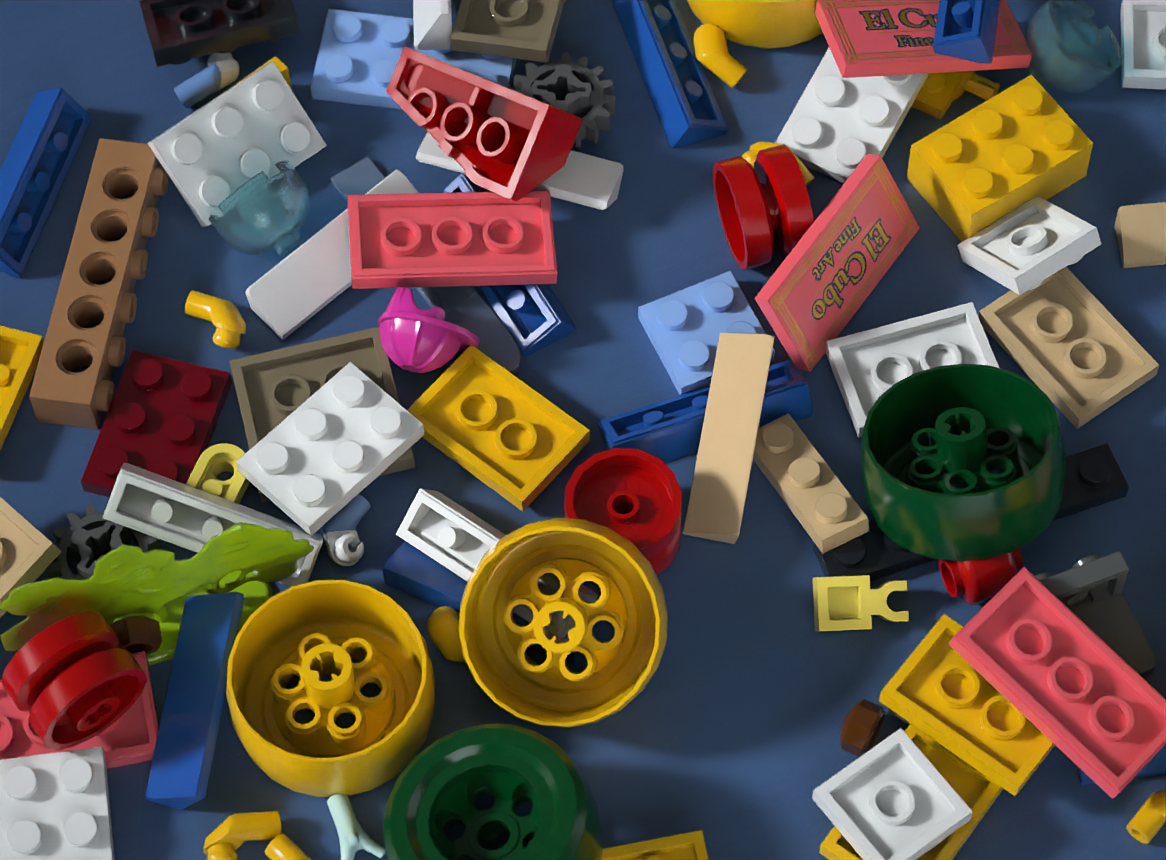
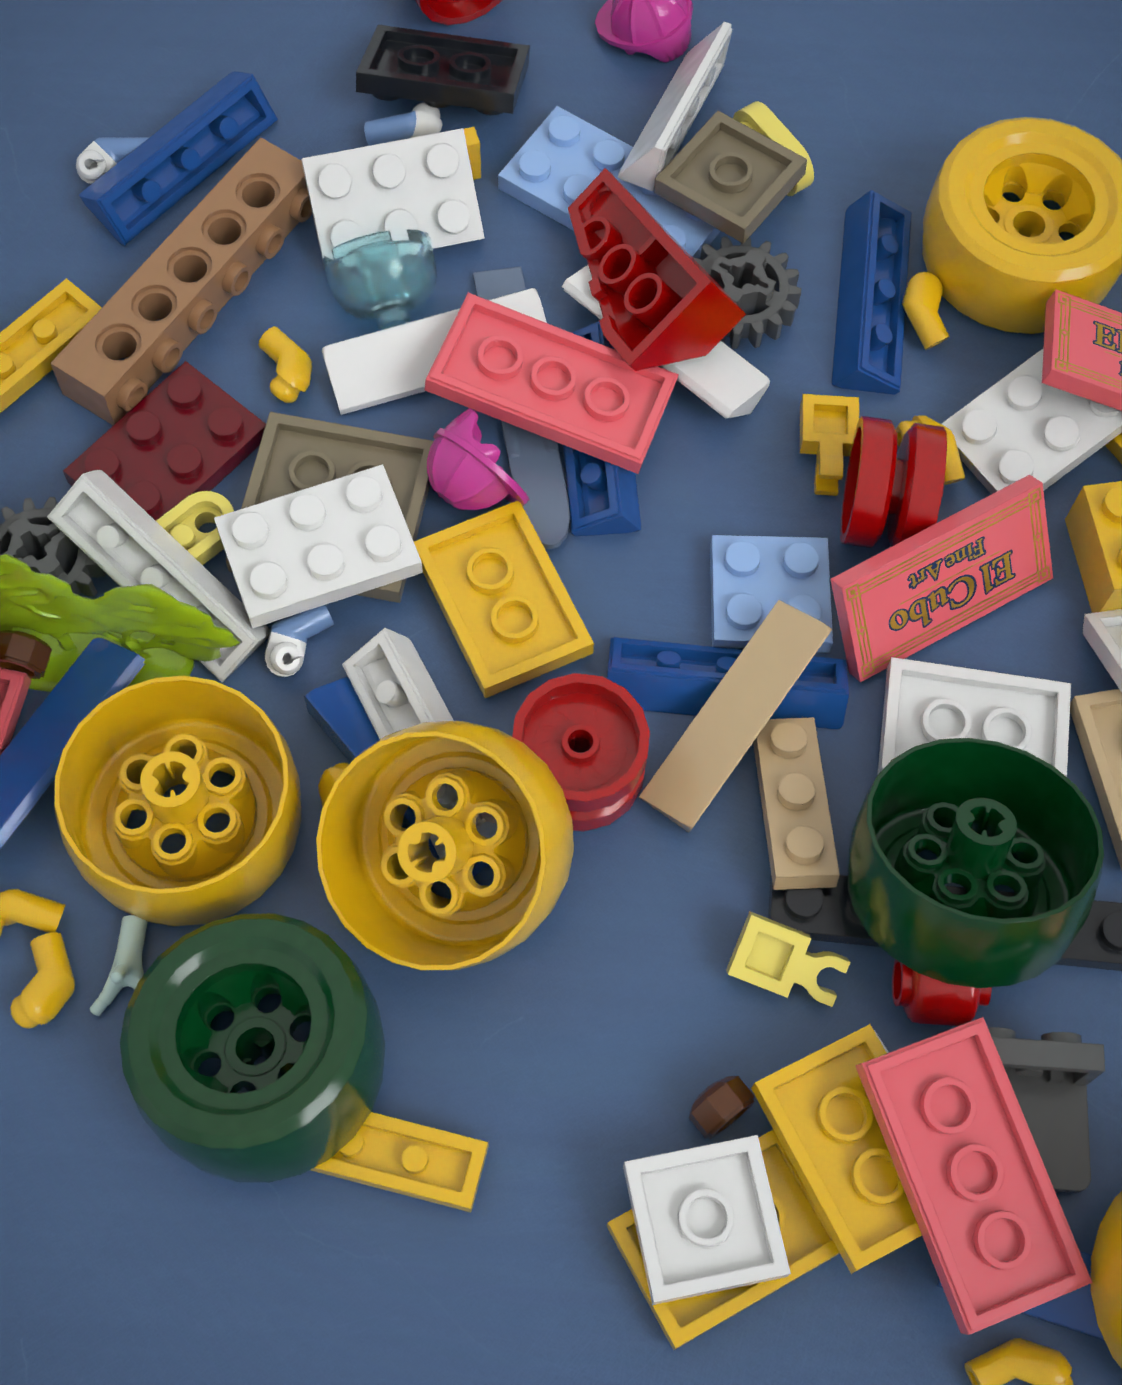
camera: 20 degrees right, 5 degrees up
(690, 186) = (828, 432): none -> yellow plate

